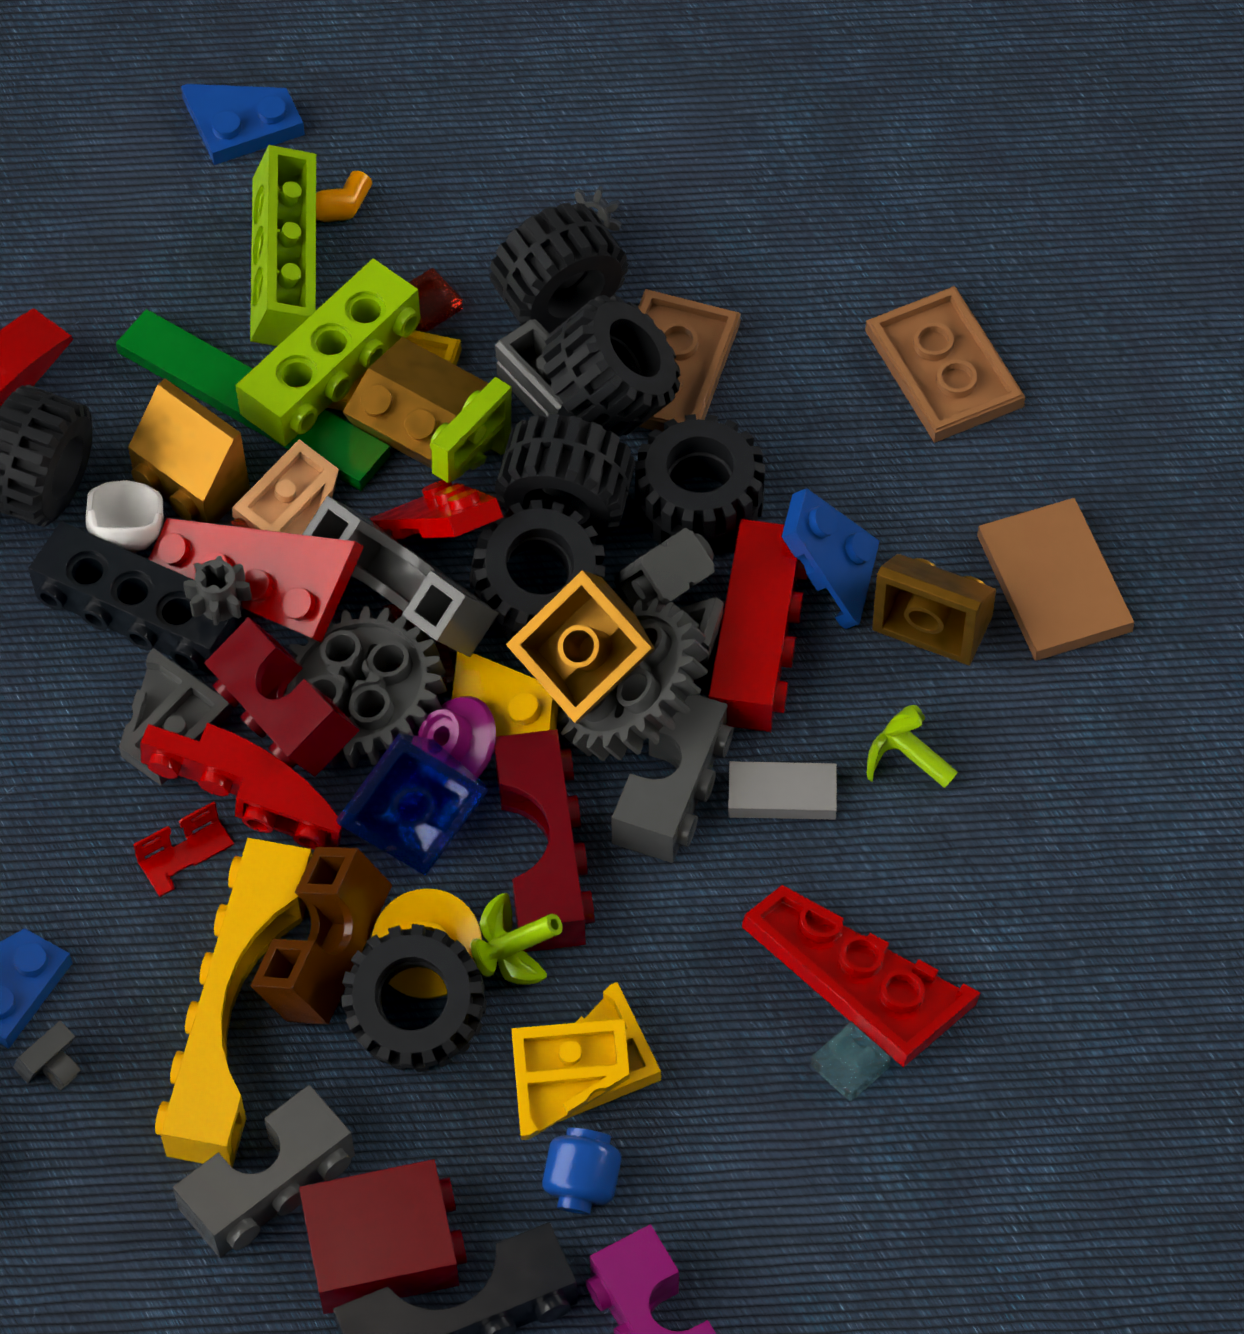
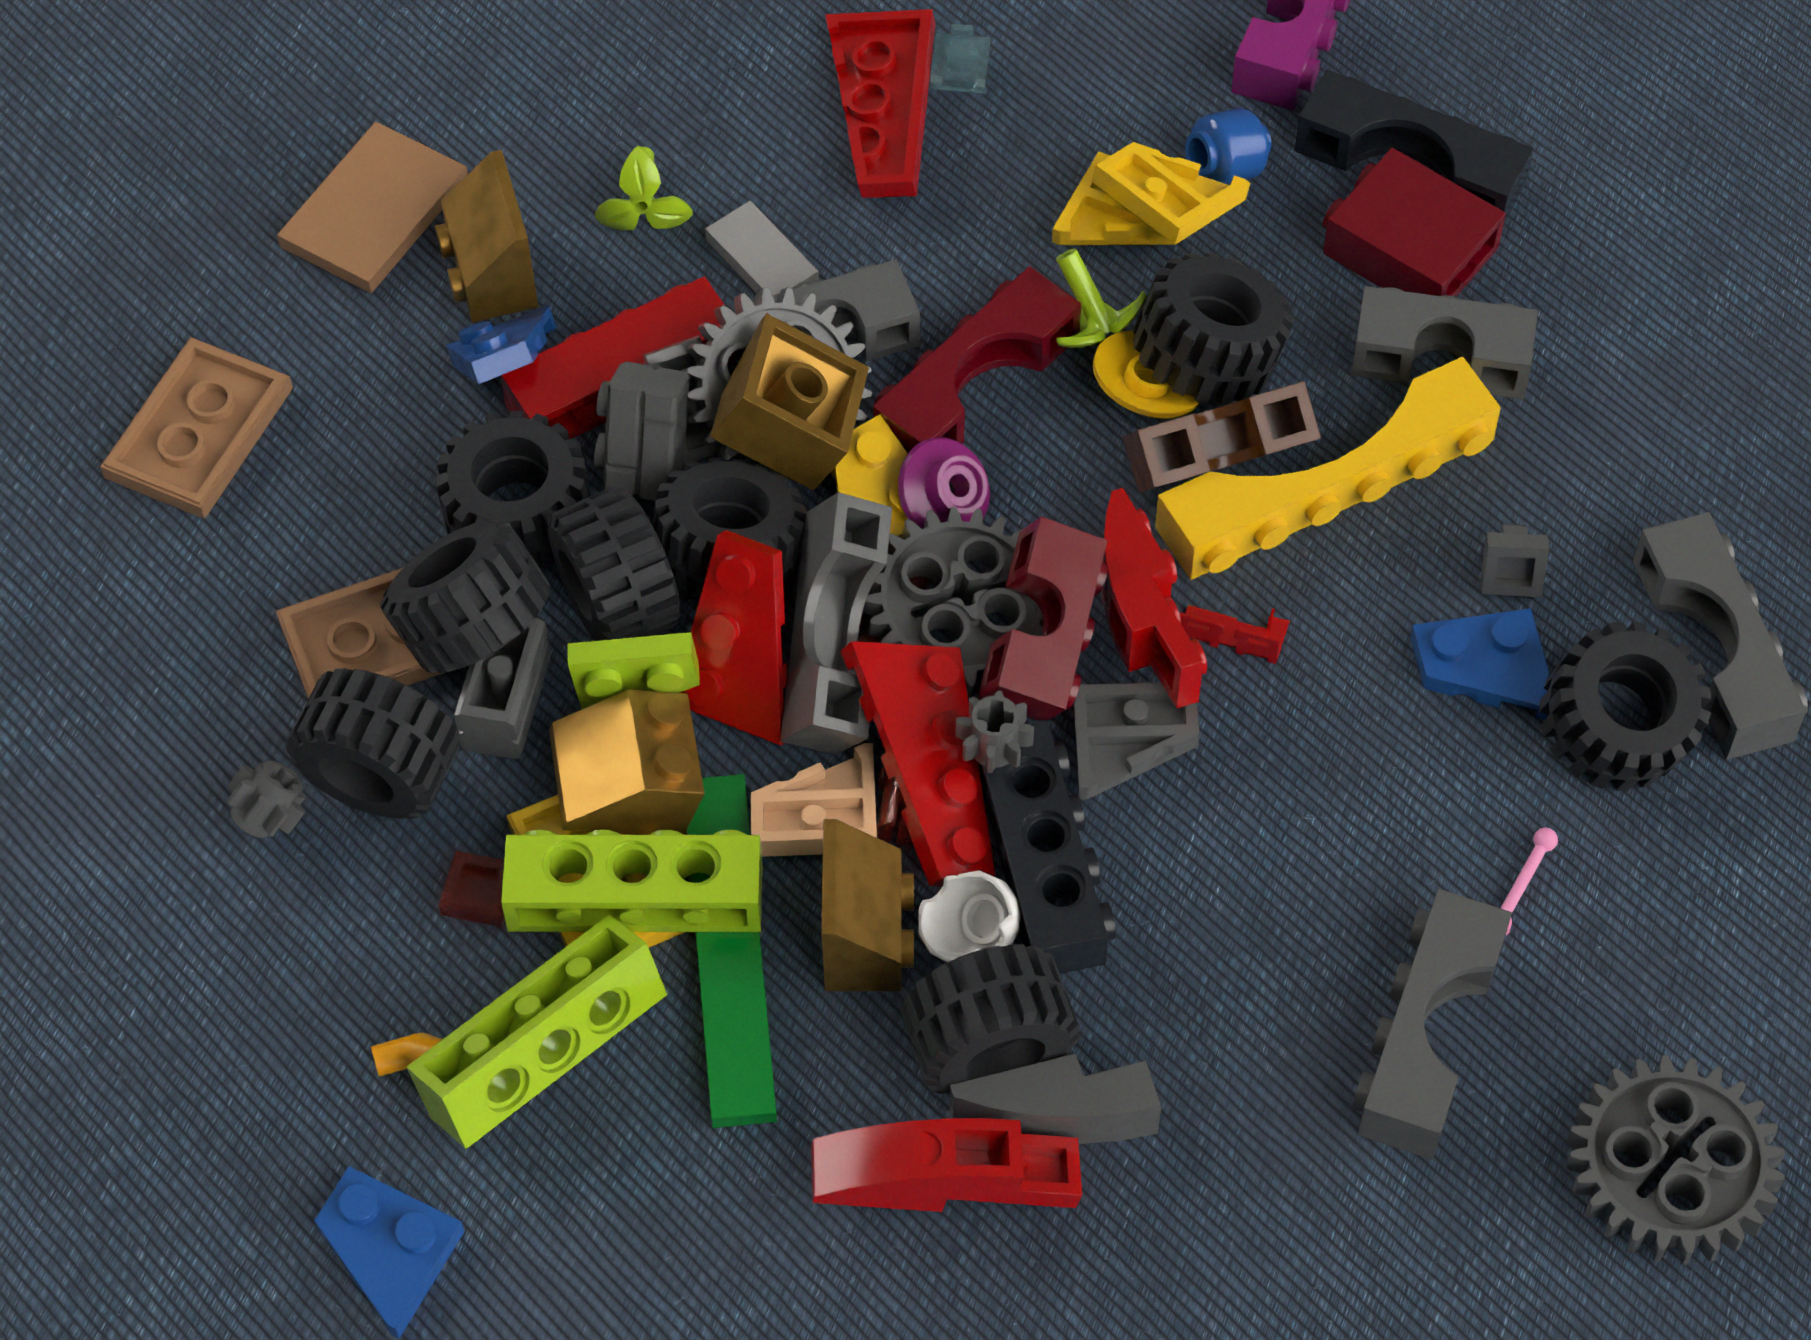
camera: 130 degrees left, 0 degrees up
(413, 801) = (1038, 466): clear blue slope -> none

